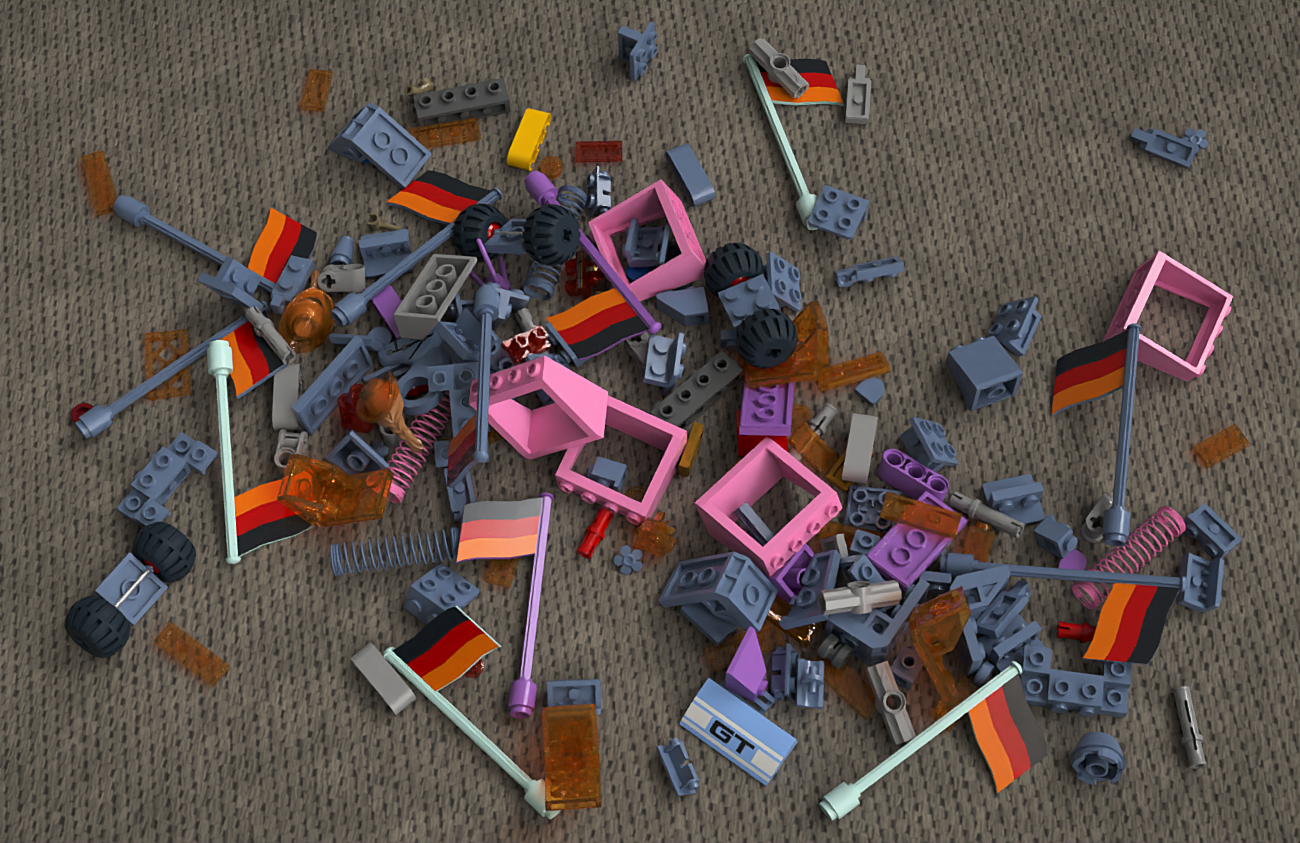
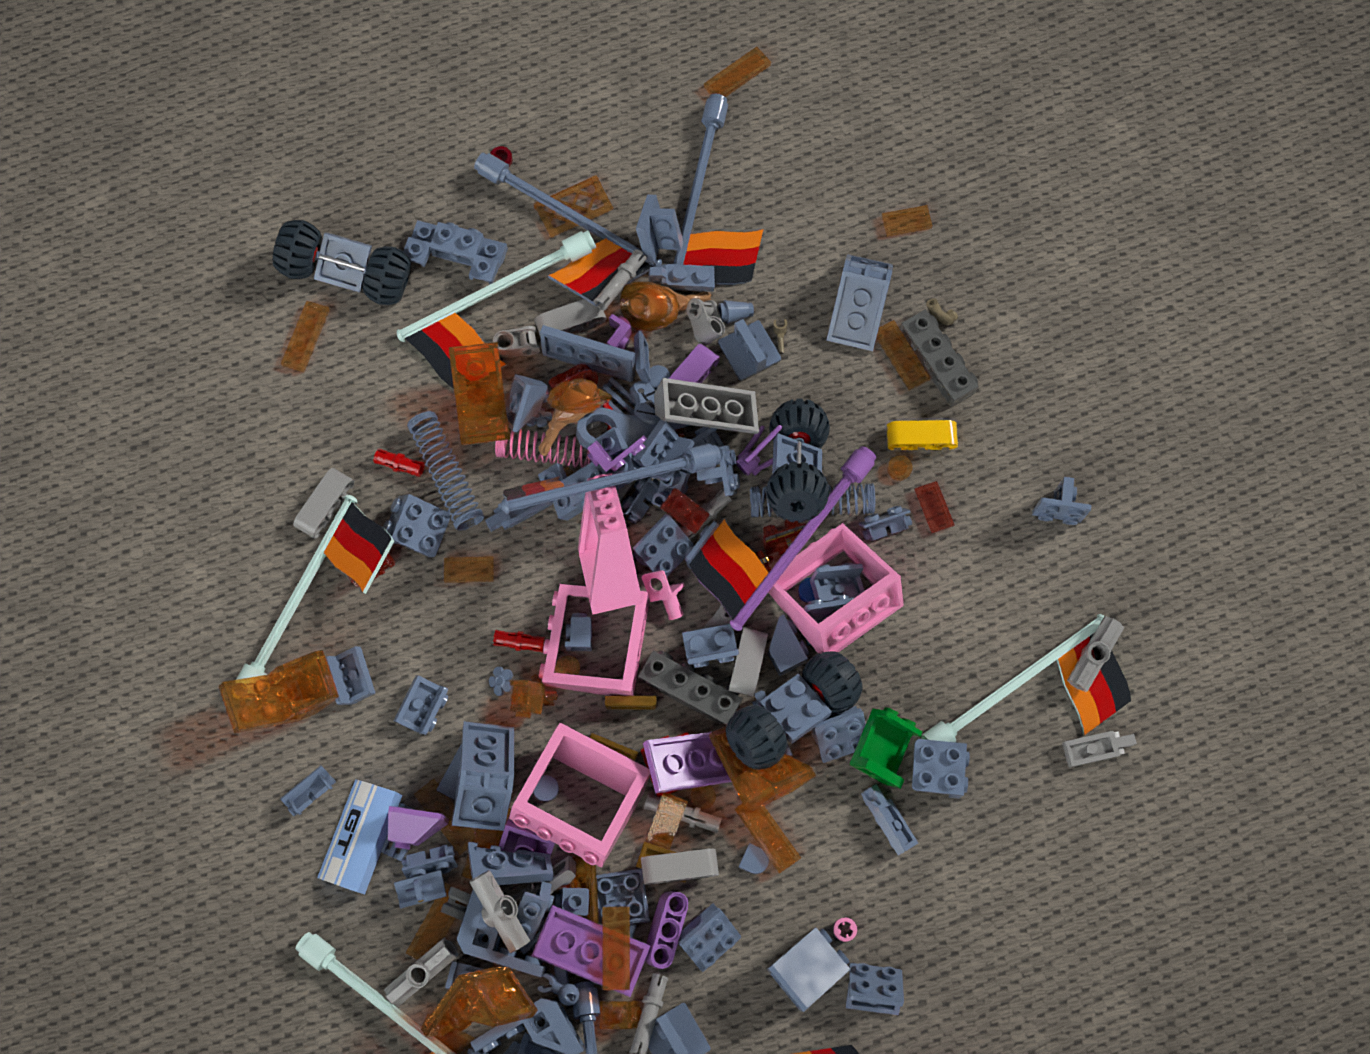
camera: 70 degrees right, 10 degrees up
(318, 352) = (623, 331): none -> medium lavender bracket
(369, 595) = (399, 462): none -> red pin
(435, 199) = (823, 375): flag -> none
(453, 383) = (600, 456): none -> medium lavender bracket
(511, 532) = (491, 560): flag -> none
(613, 388) = (666, 593): none -> bright pink bracket
(628, 637) = (421, 705): none -> sand blue bracket
(691, 174) = (937, 604): sand blue beam -> none
(699, 338) = (748, 662): none -> light grey beam
(754, 524) = (565, 789): sand blue tile -> none
(803, 252) = (884, 746): none -> green panel
(947, 574) = (564, 992): none -> sand blue arm
(955, 328) = (852, 927): none -> bright pink bush

